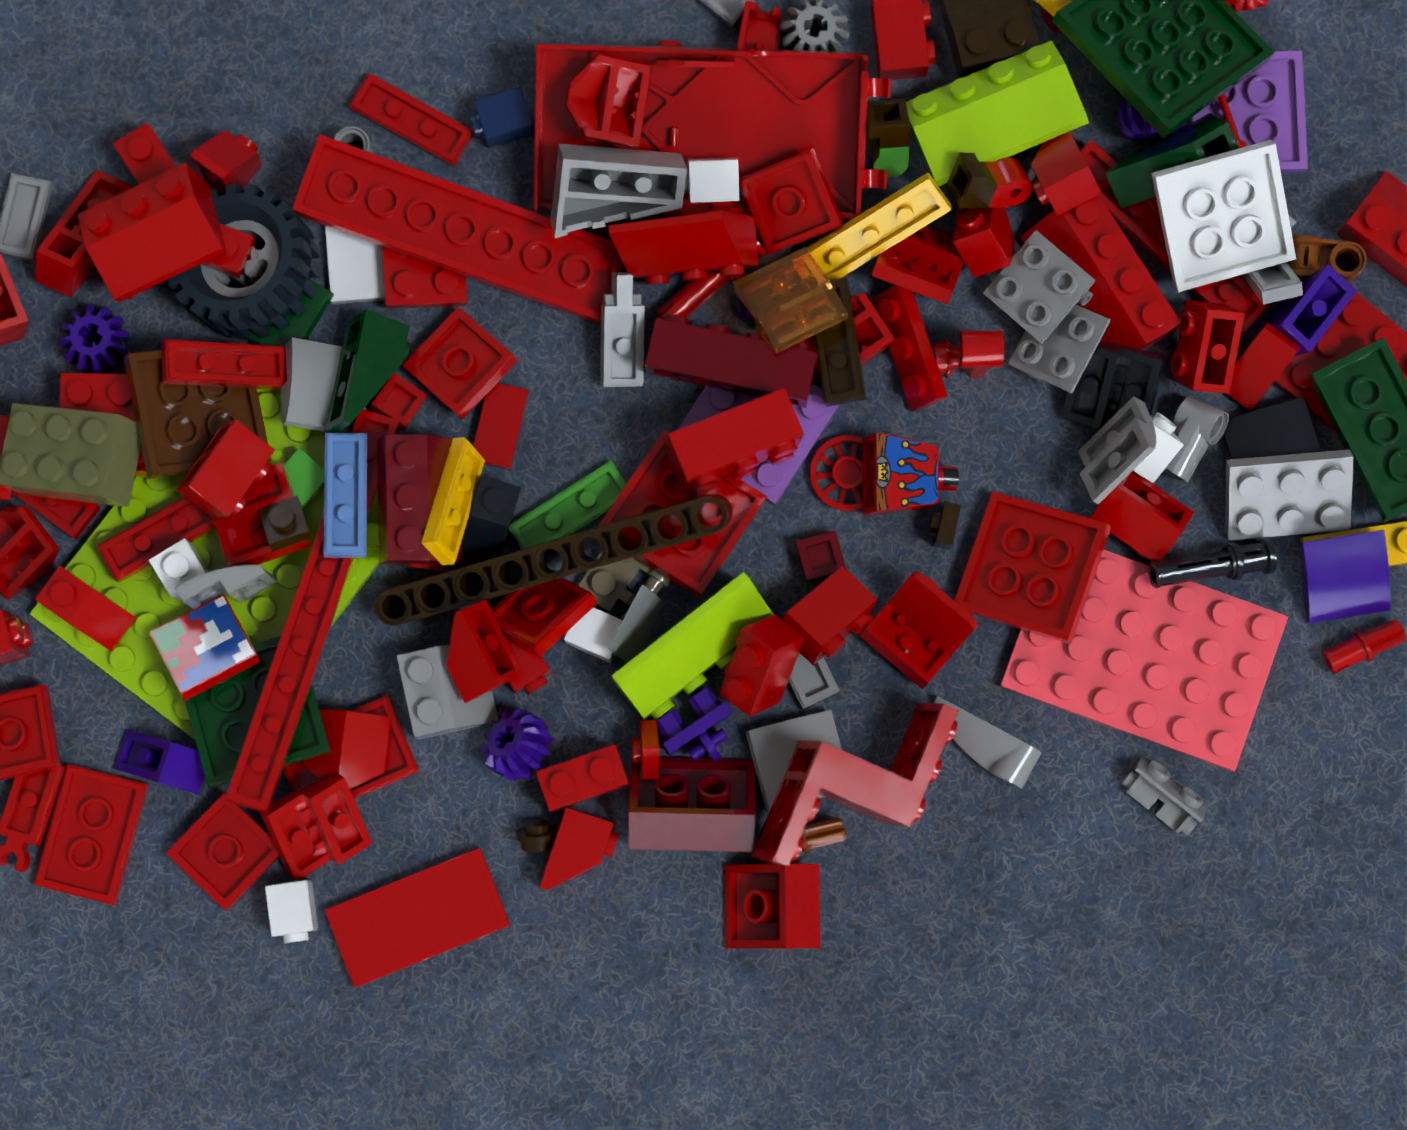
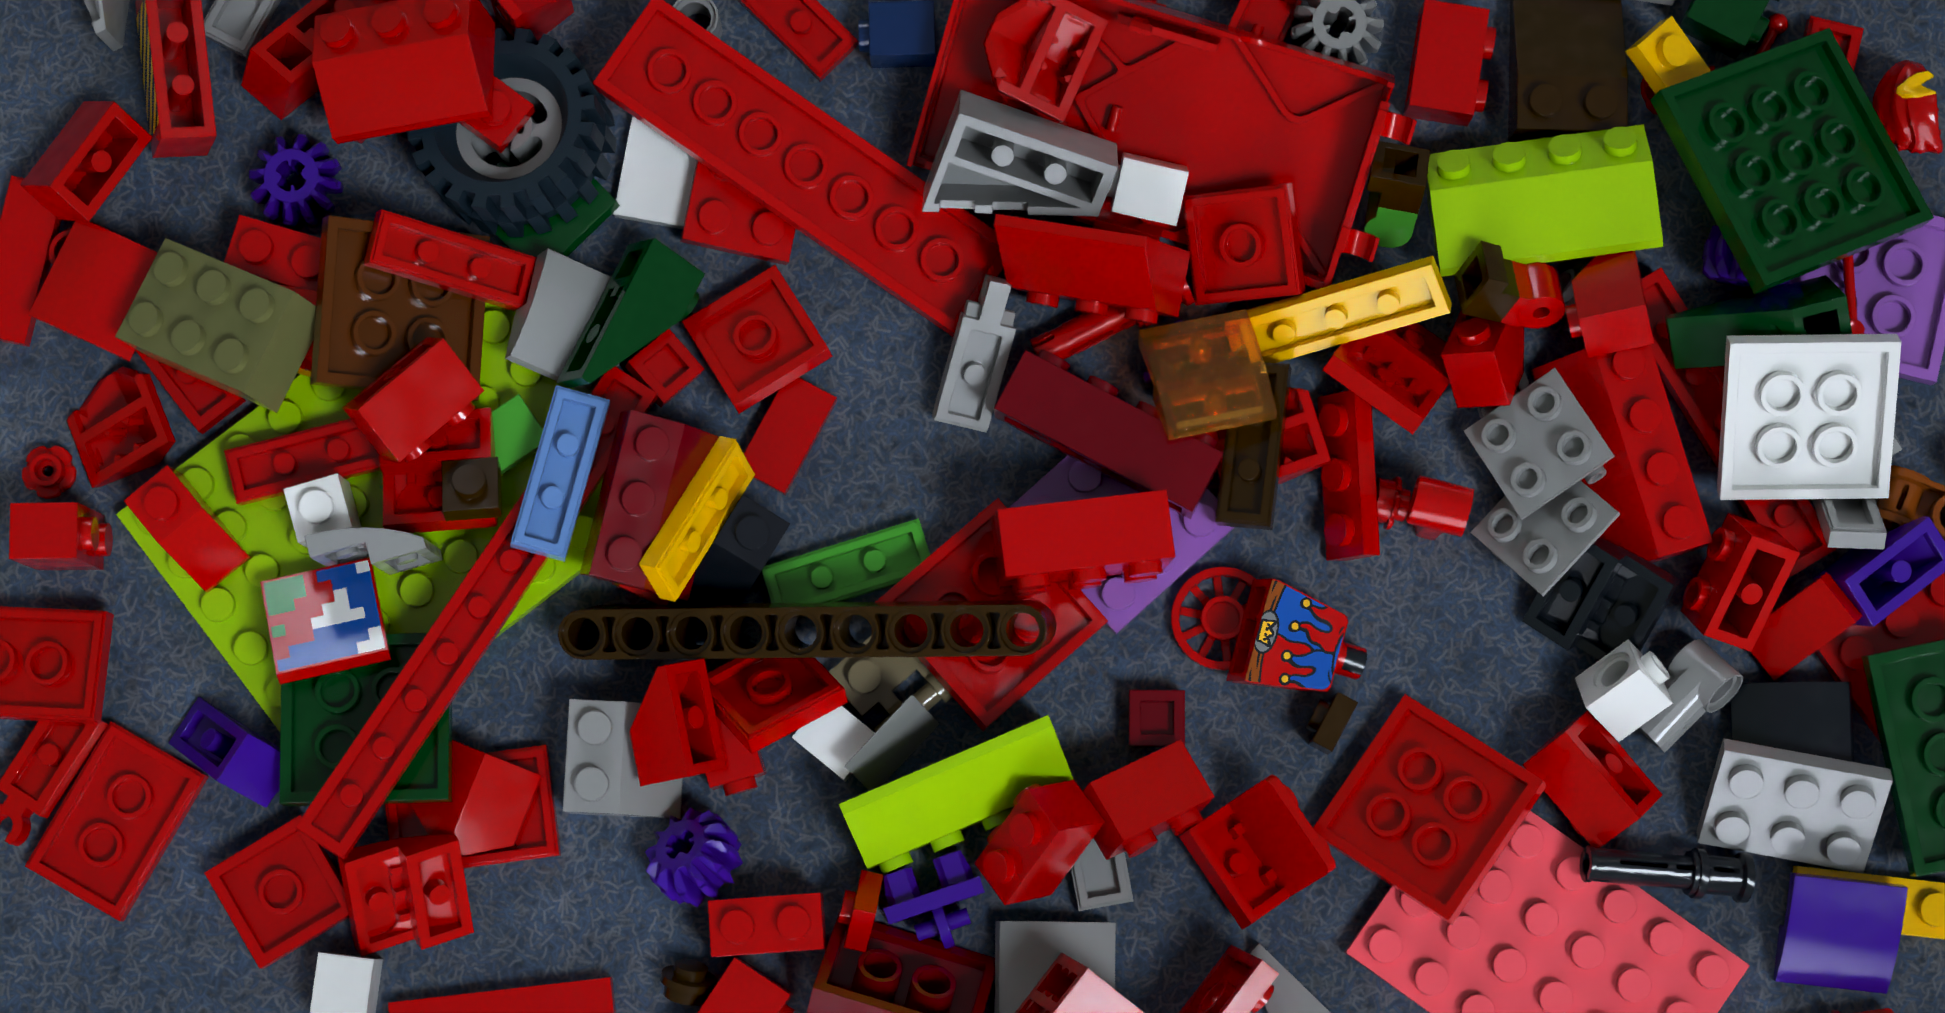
camera: 20 degrees right, 0 degrees up
(1117, 449) = (1583, 686): light grey slope -> none

